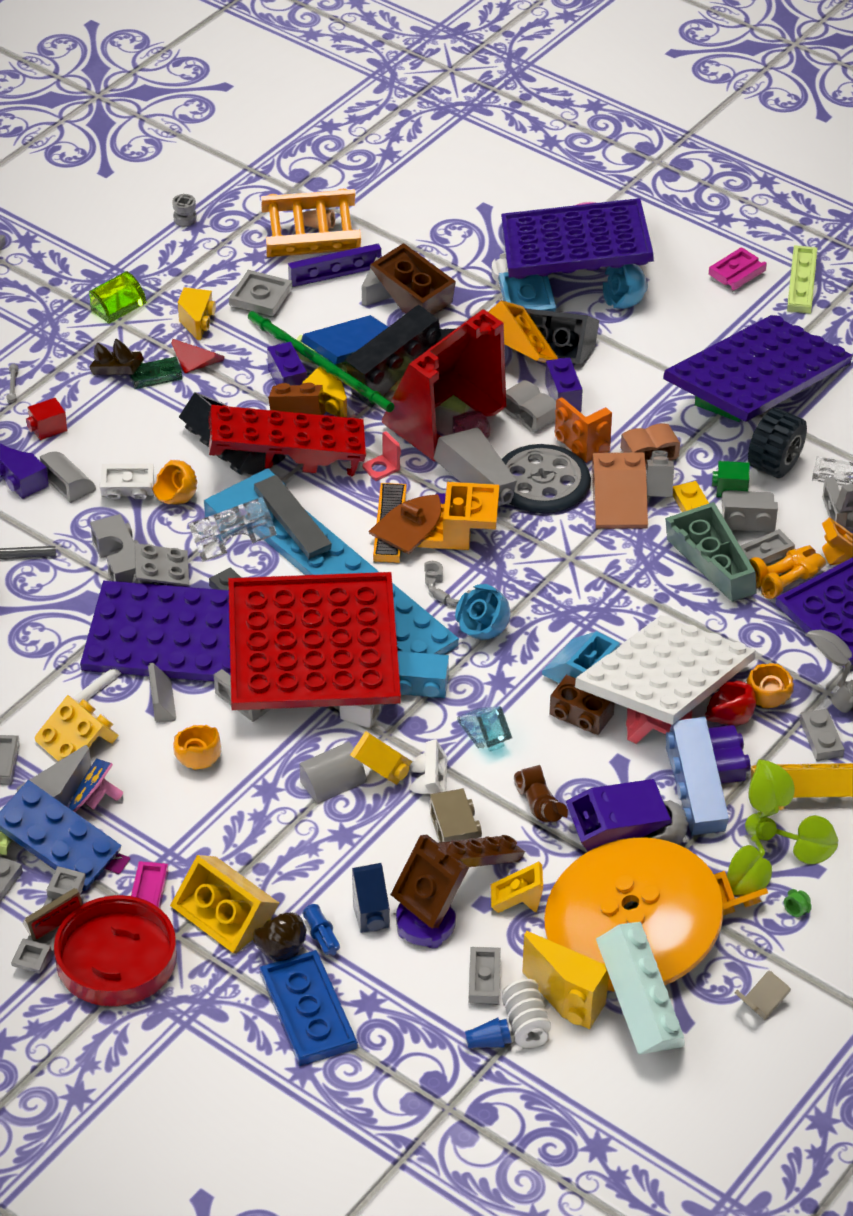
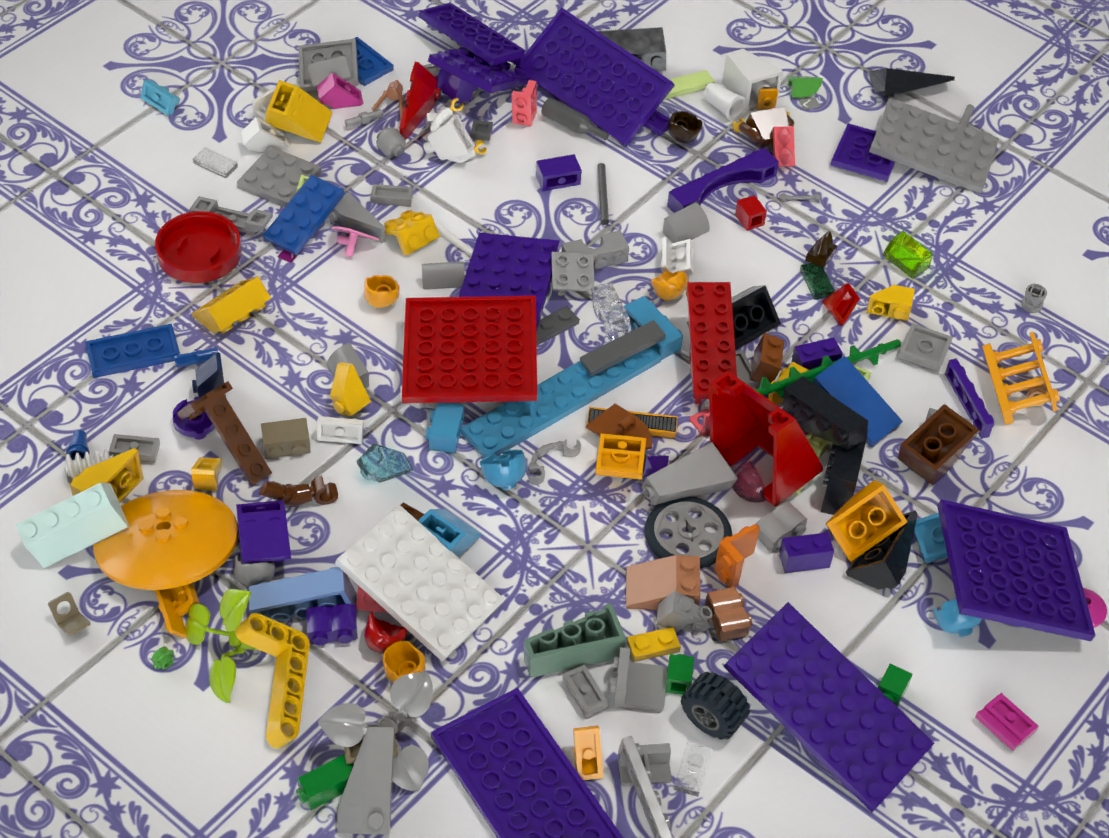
camera: 90 degrees right, 5 degrees up
(52, 915) = (229, 210): slope -> none
(150, 882) = (251, 268): dark pink tile -> none
(281, 937) = (186, 330): dark brown hair -> none
(713, 331) = (895, 683): none -> green brick
(802, 279) = (1002, 783): yellowish green tile -> none
(802, 562) = (551, 679): light orange piece -> none
(821, 734) = (365, 699): light grey plate -> none

